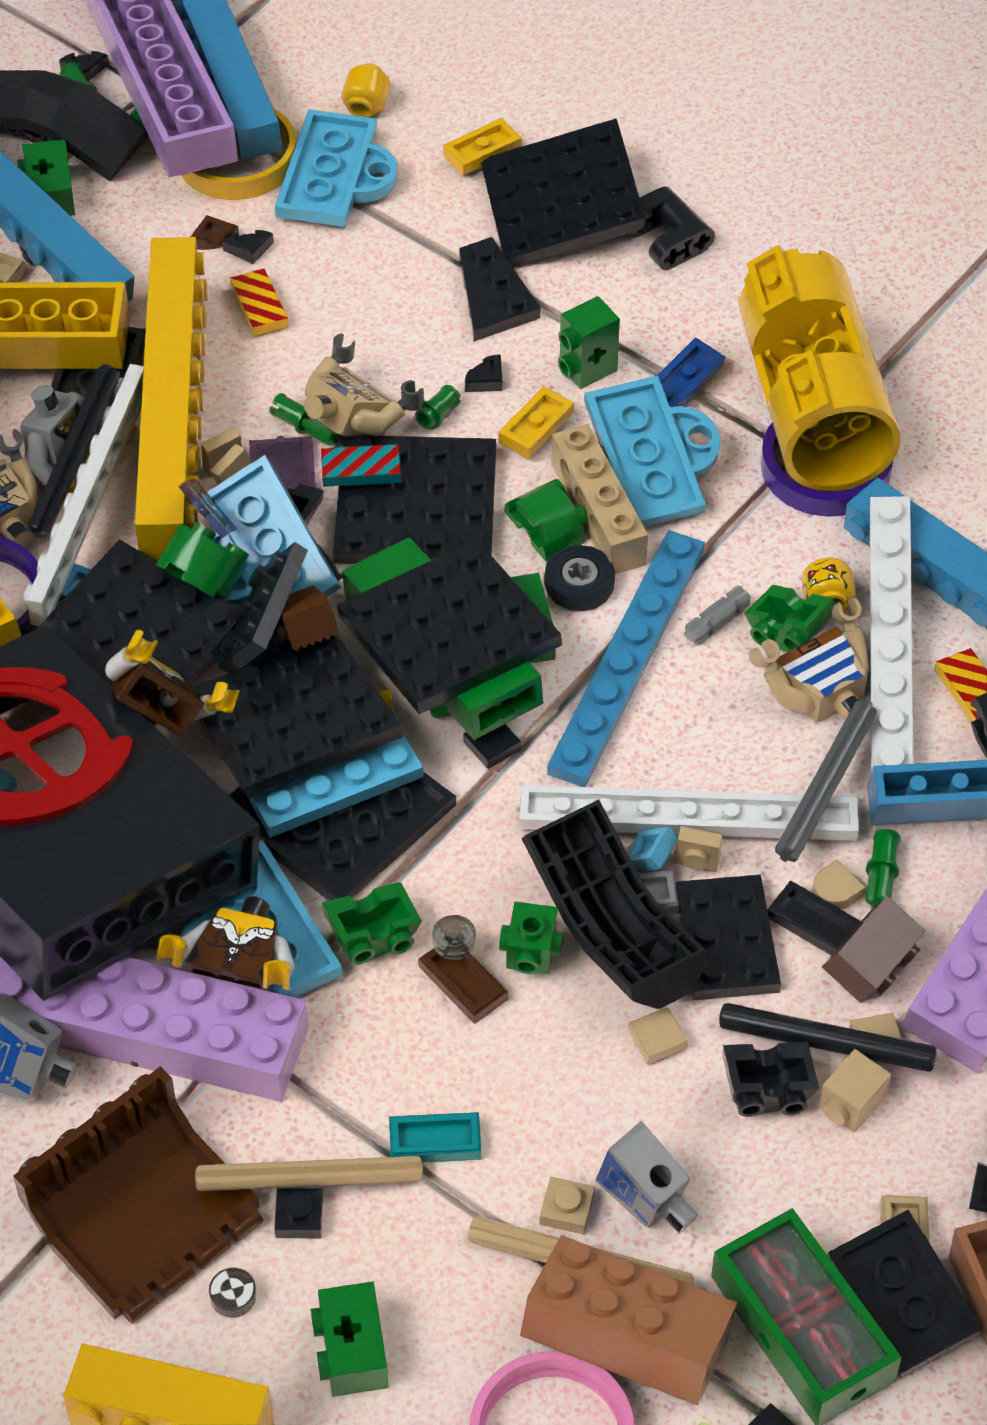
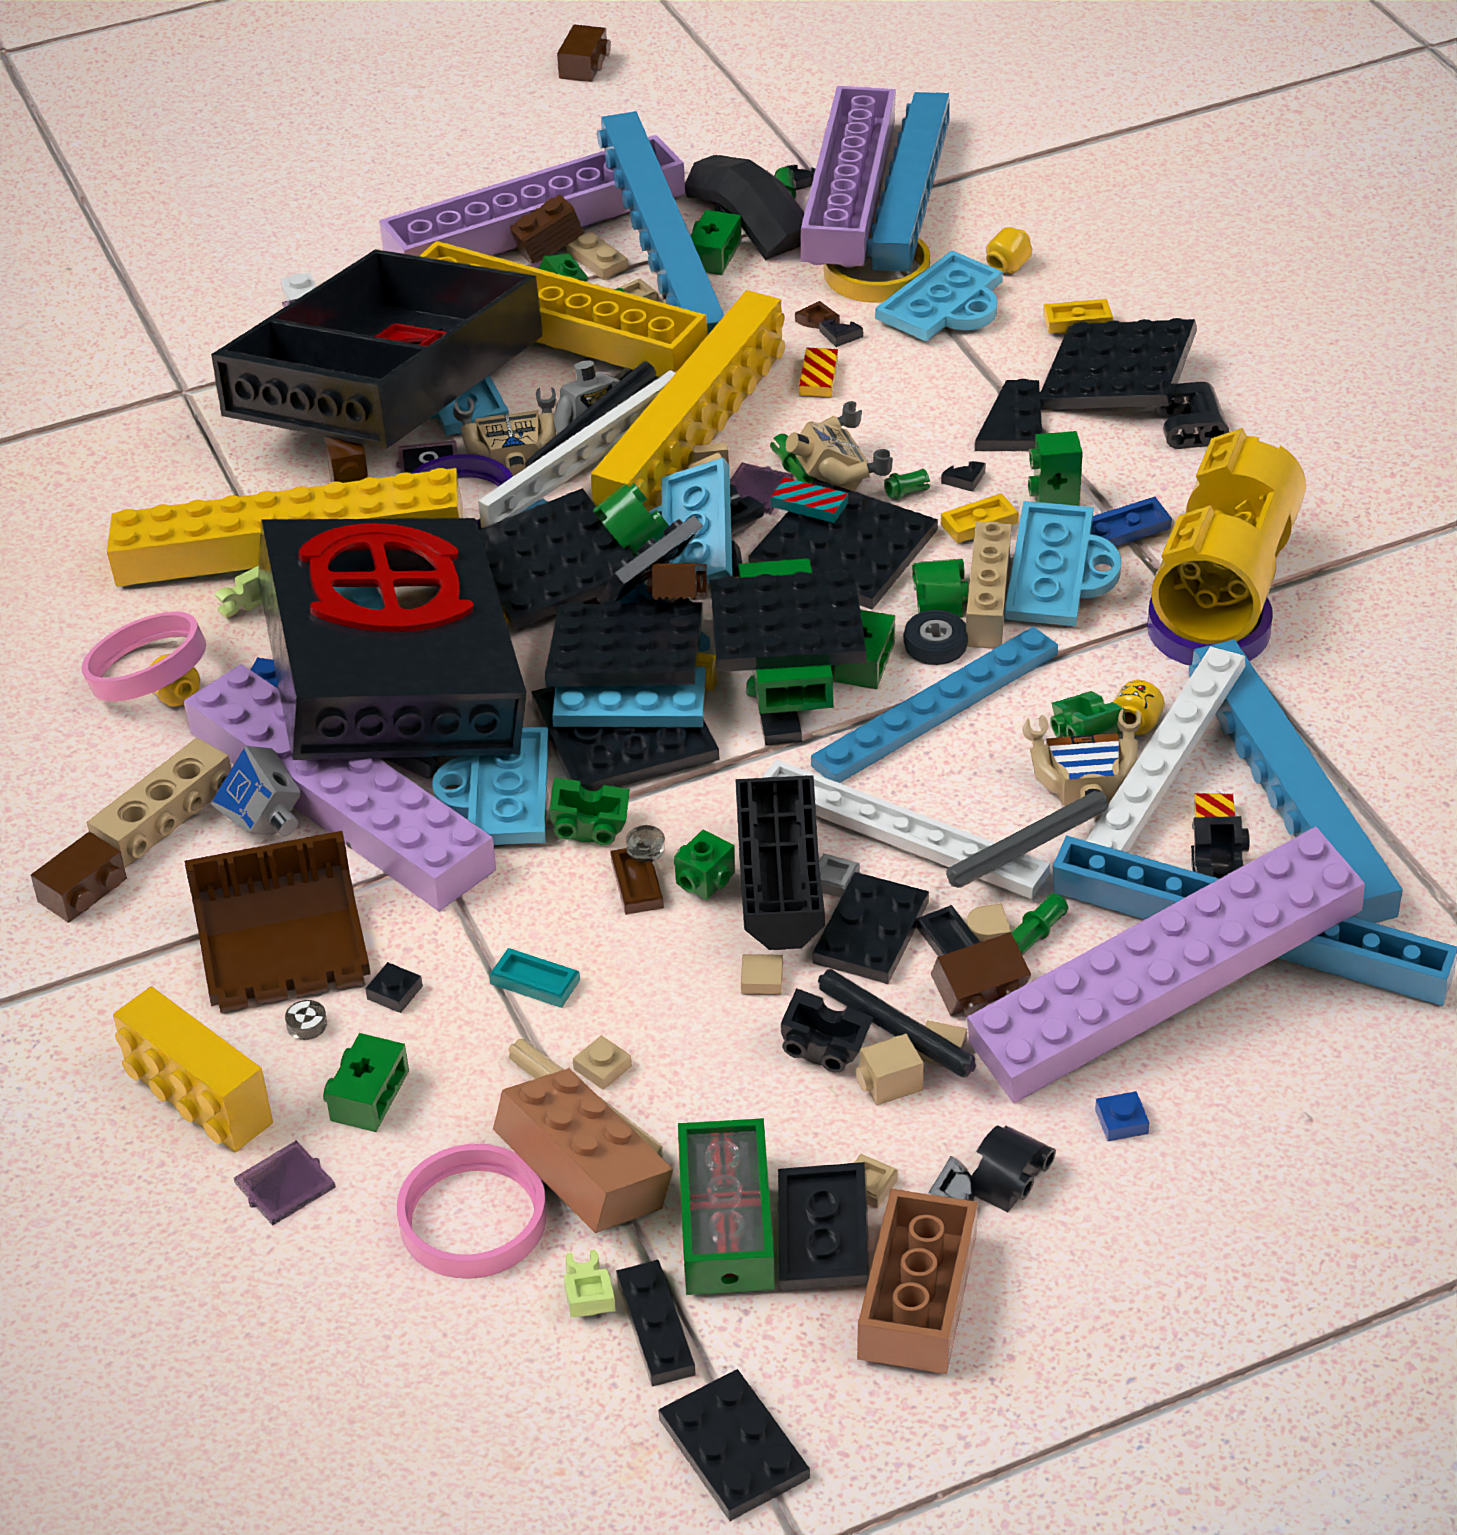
camera: 30 degrees right, 10 degrees down
(159, 690) = (524, 583): torso -> none
(208, 507) = (652, 478): clear purple piece -> none
(234, 948) = (462, 782): torso -> none
(308, 1173) = (417, 960): tan axle -> none
(646, 1179) = (669, 1069): light grey torso -> none
(652, 849) = (849, 842): medium azure plate -> none
(698, 849) = (889, 854): tan plate -> none
(717, 615) = (1030, 700): light grey axle -> none

